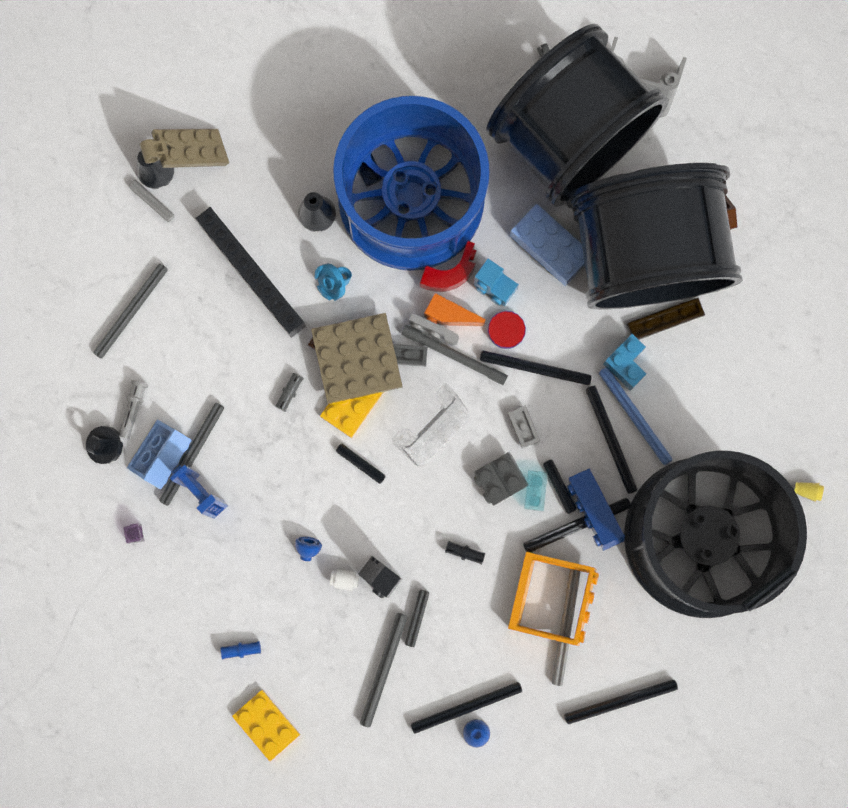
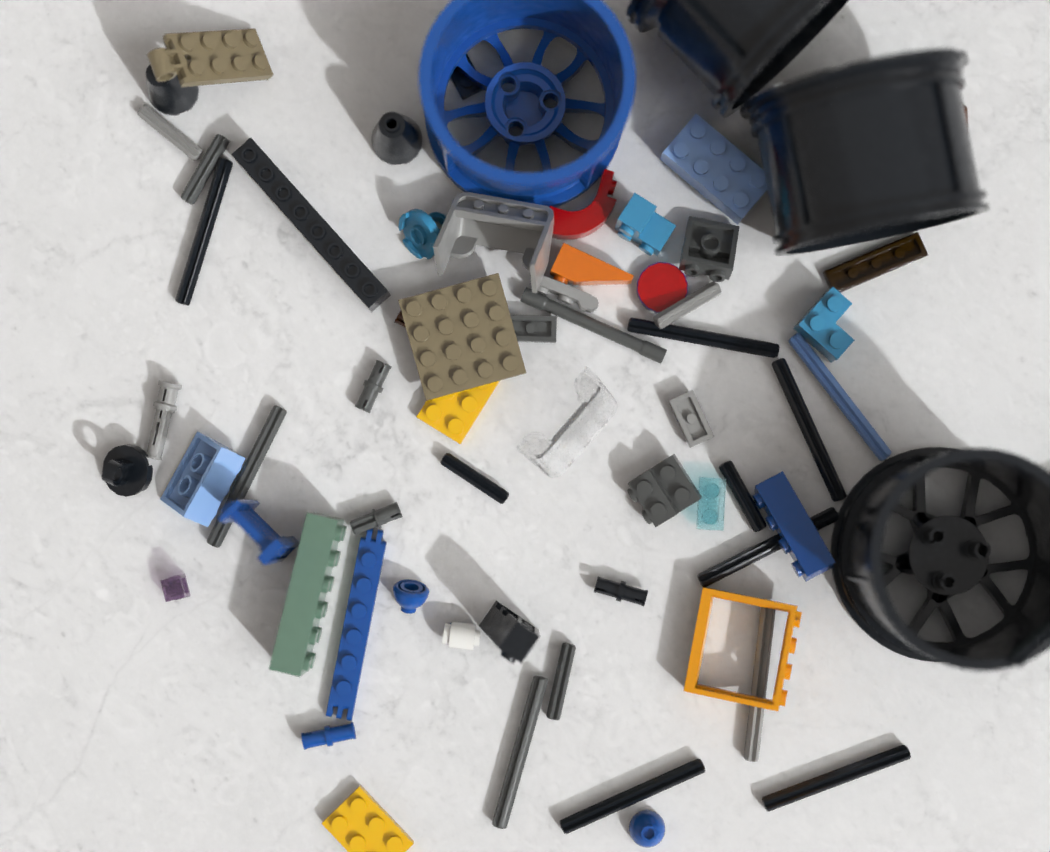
camera: 10 degrees left, 5 degrees up
(130, 311) = (151, 285): dark grey axle -> none
(171, 273) = (204, 231): none -> black axle
(175, 228) = (204, 169): none -> dark grey axle
(231, 541) = (307, 593): none -> sand green brick
(266, 568) = (357, 625): none -> blue hinge
(285, 489) = (376, 518): none -> dark grey axle
(388, 278) = (499, 225): none -> light grey windscreen
(524, 343) = (687, 305): none -> light grey axle
(542, 302) = (709, 249): none -> dark grey plate

